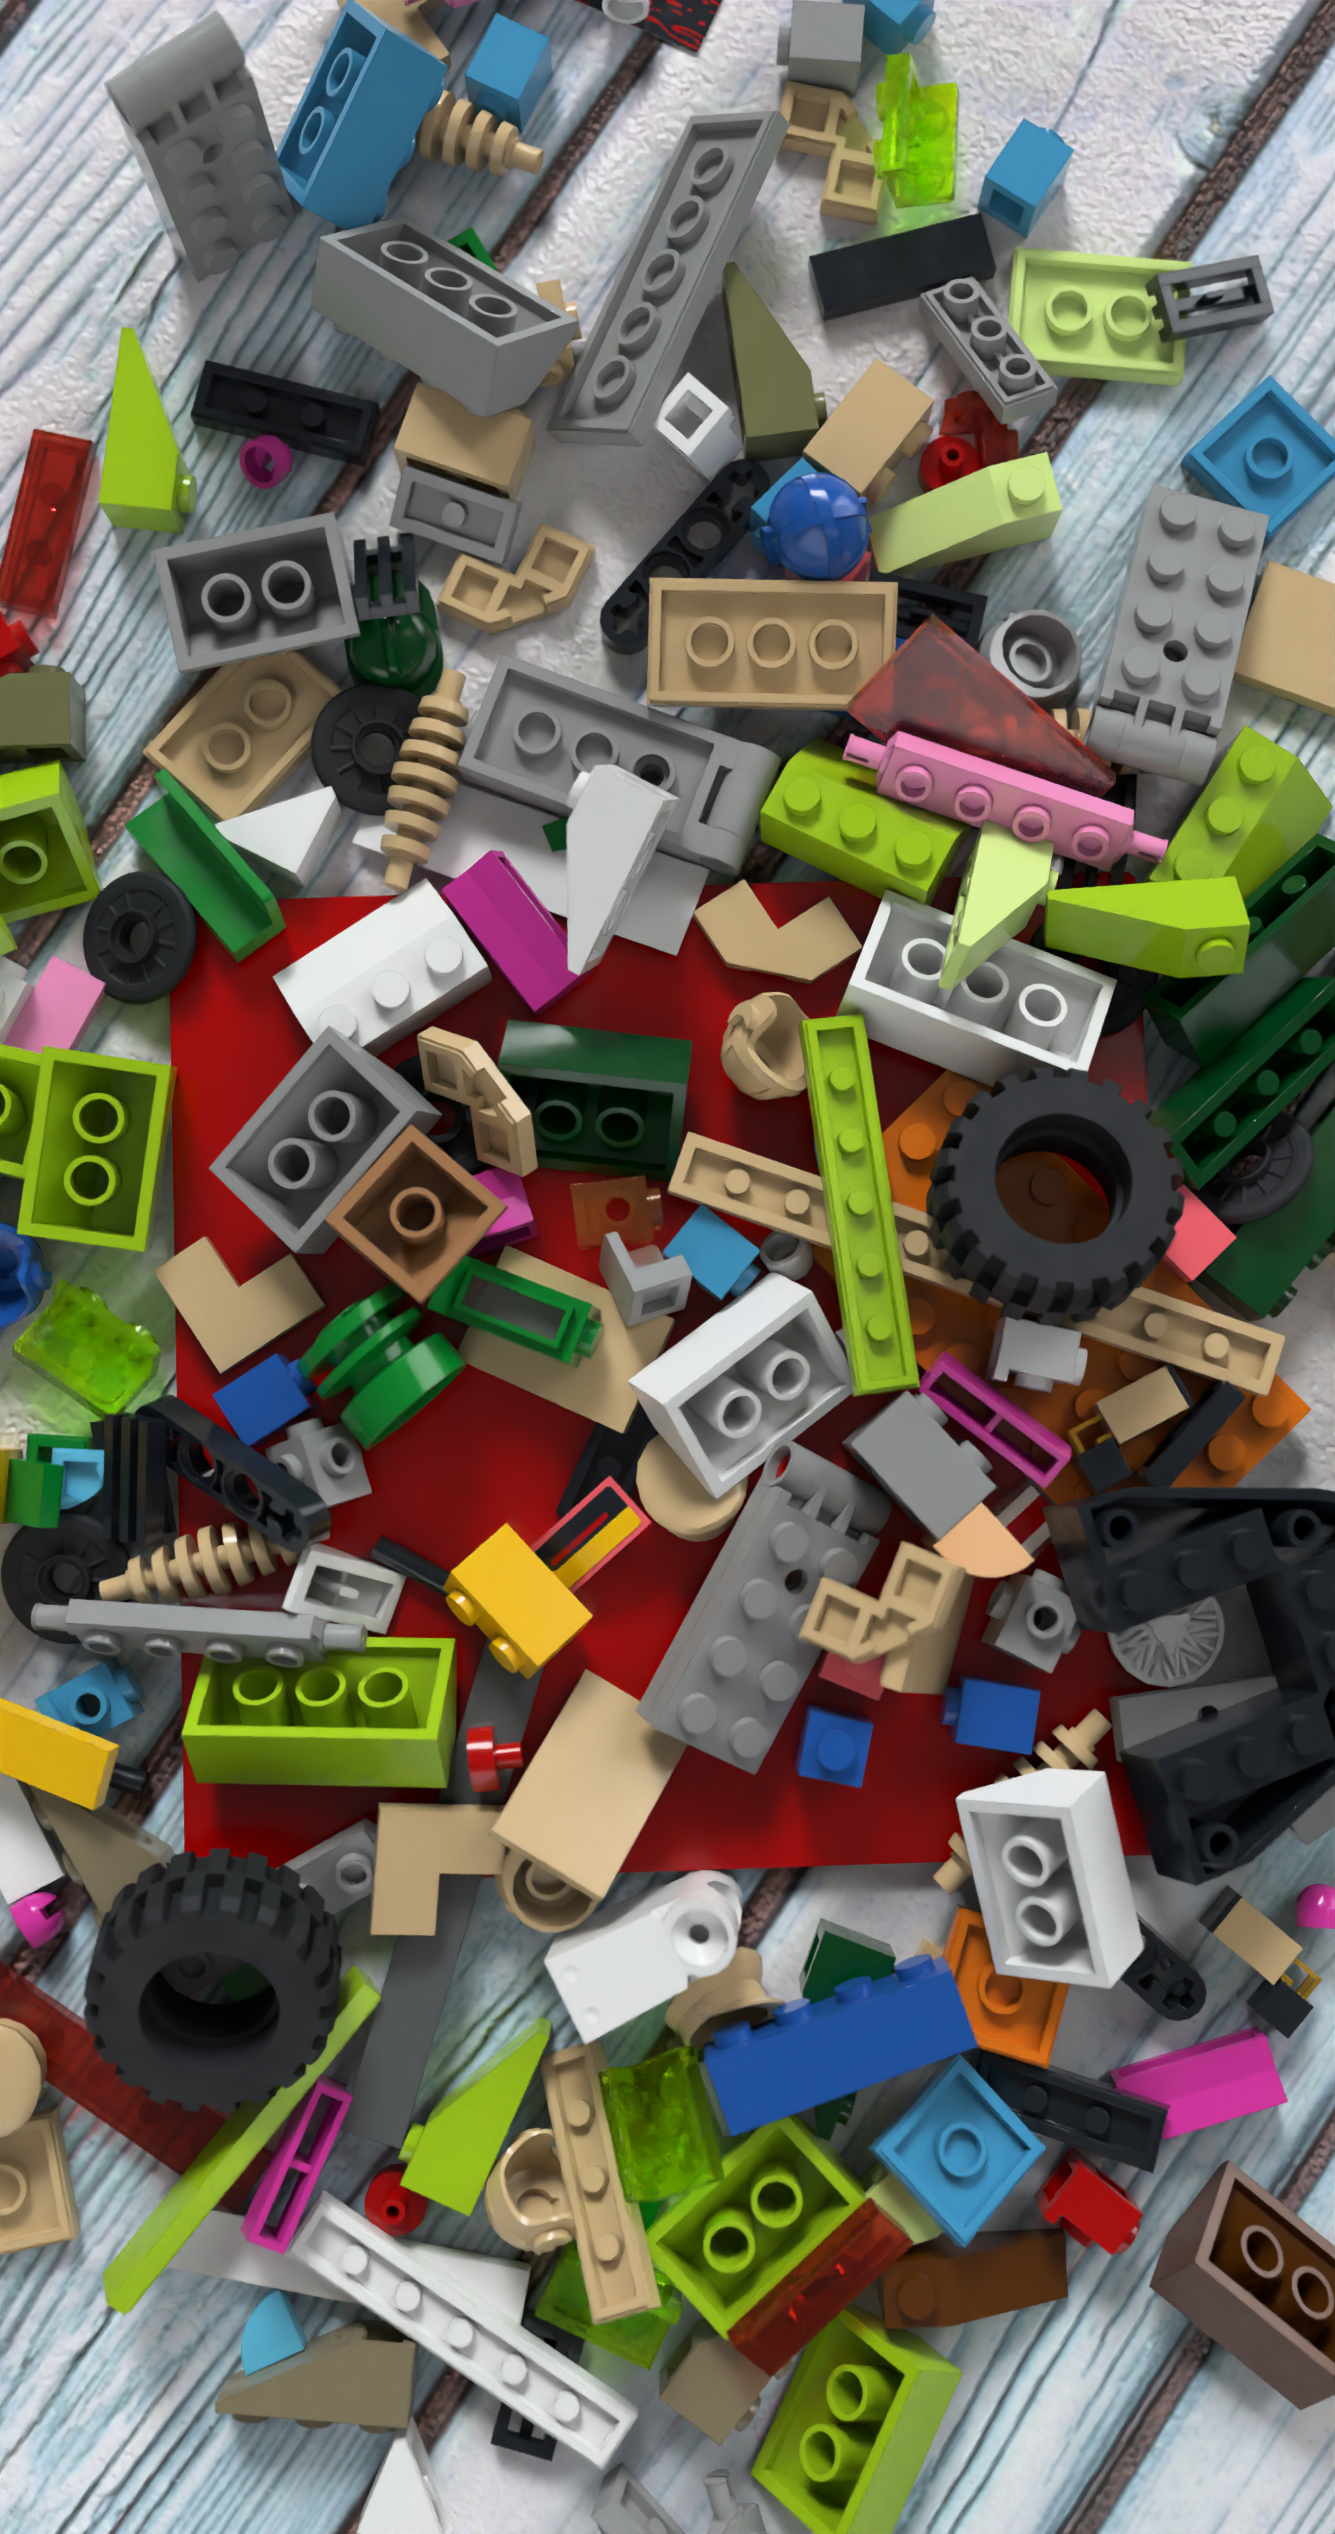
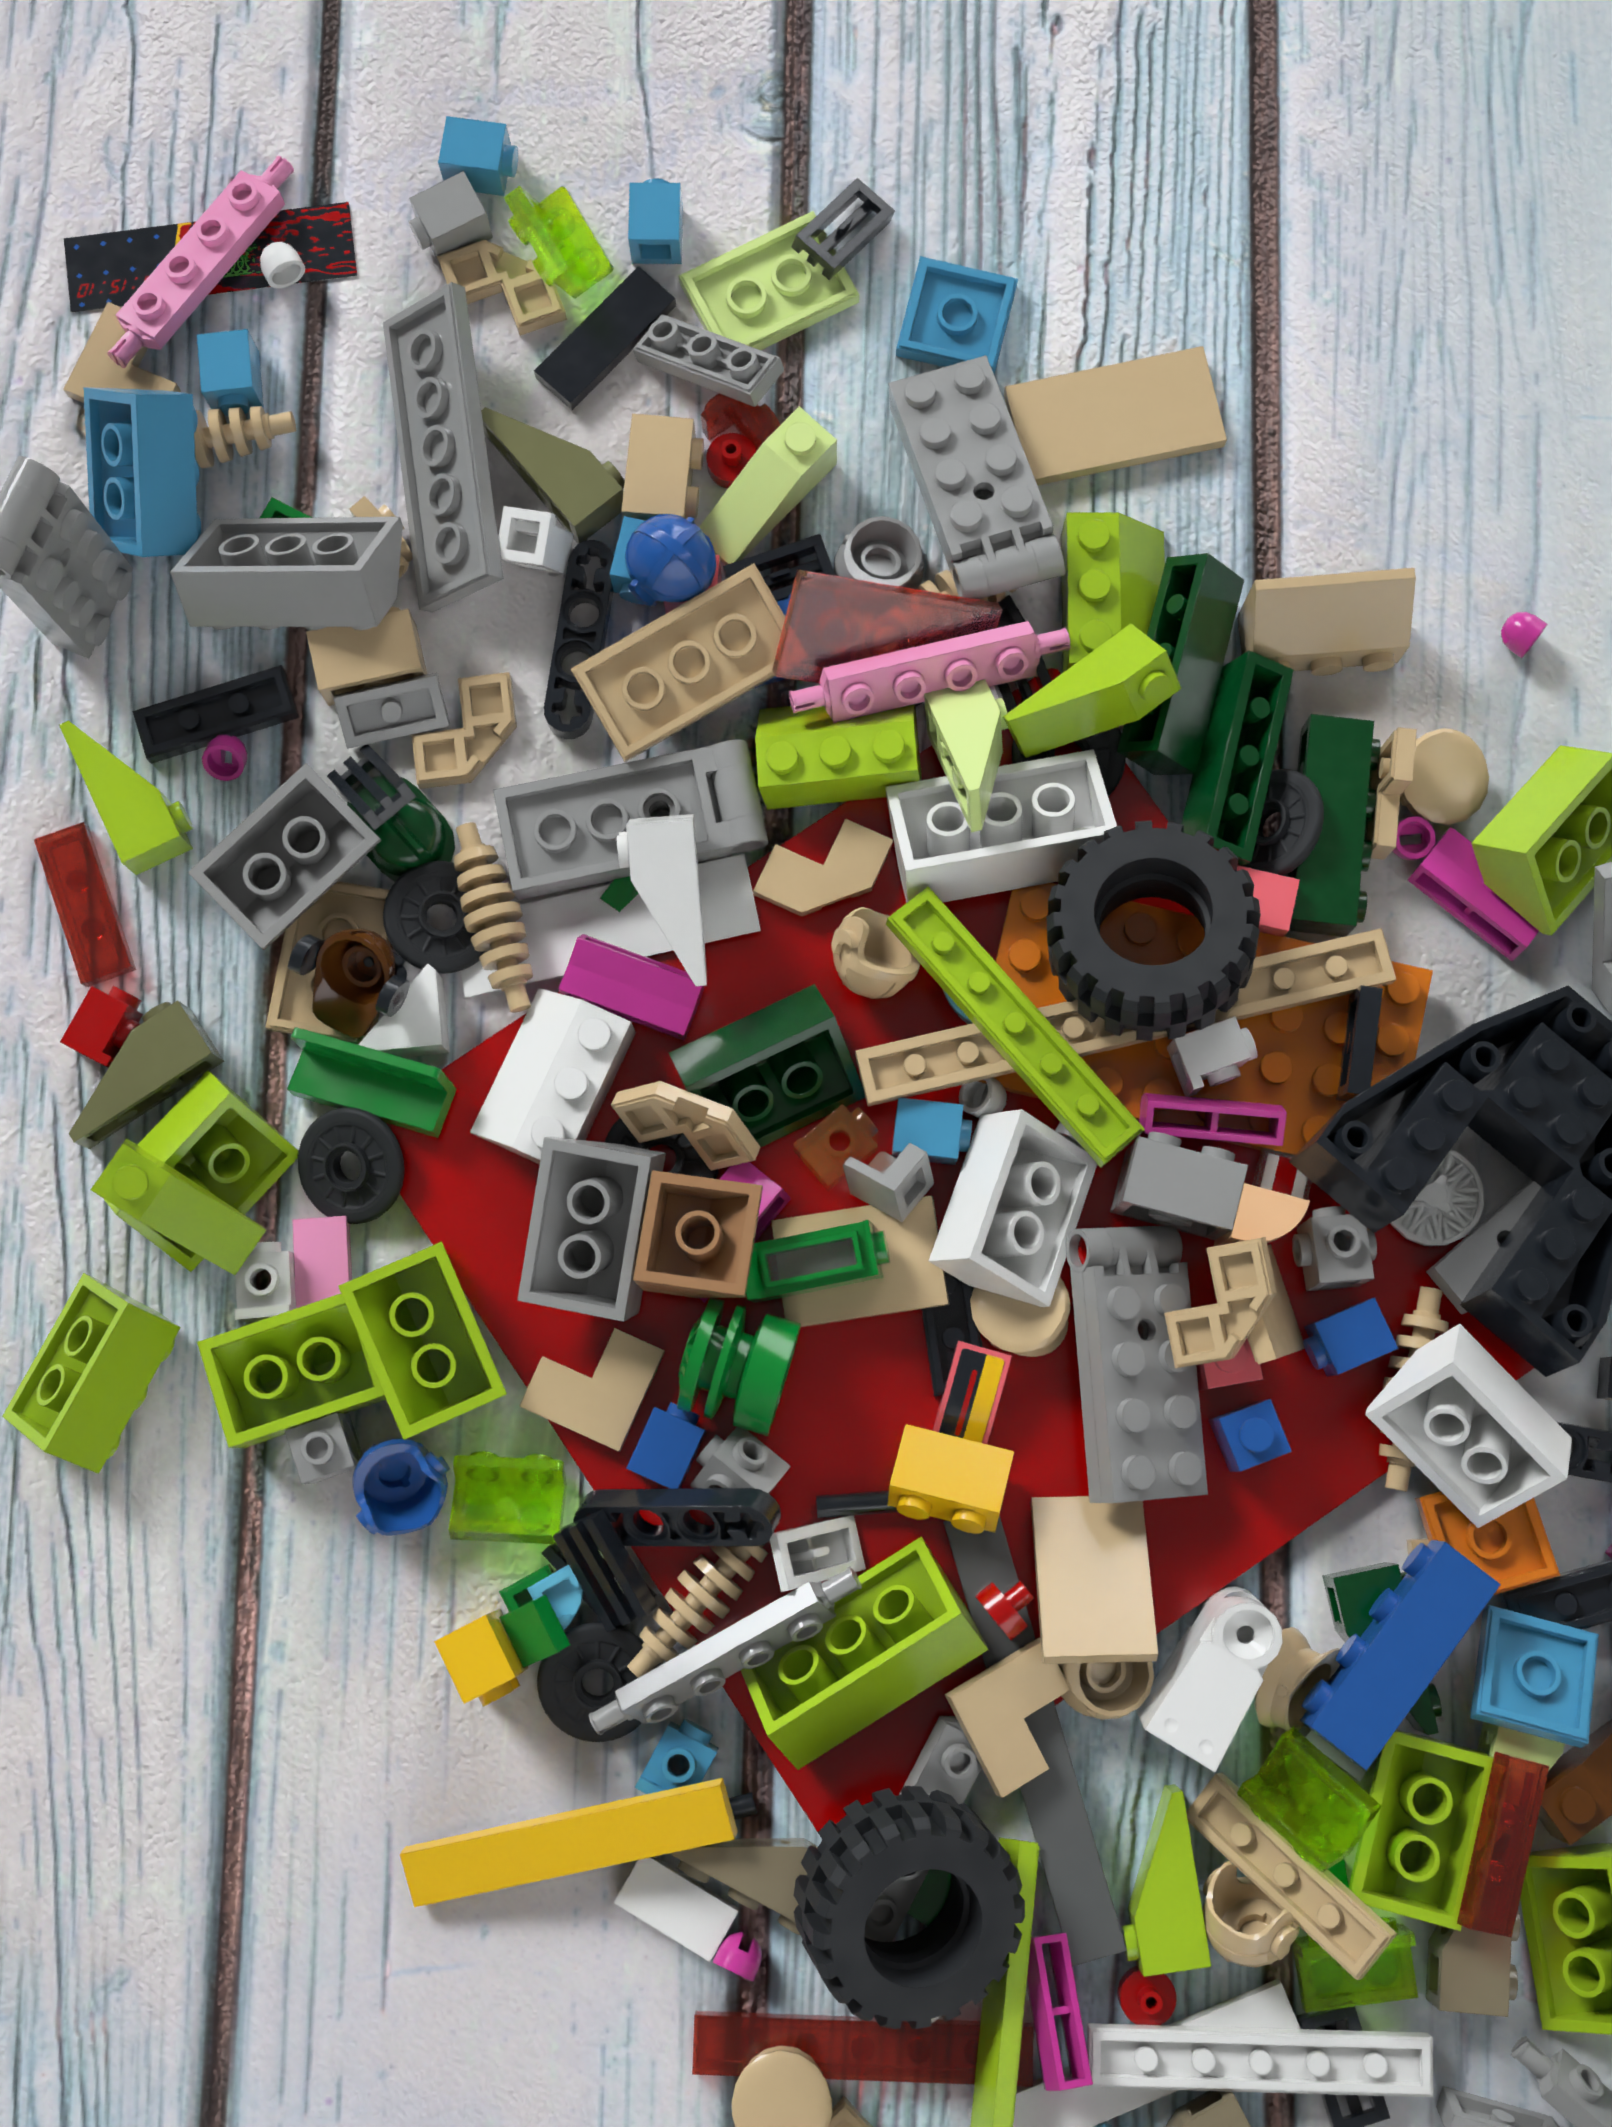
camera: 30 degrees left, 5 degrees down
(251, 755) = (353, 978): none -> reddish brown cap
(1123, 1418) = (1303, 1062): piece -> none

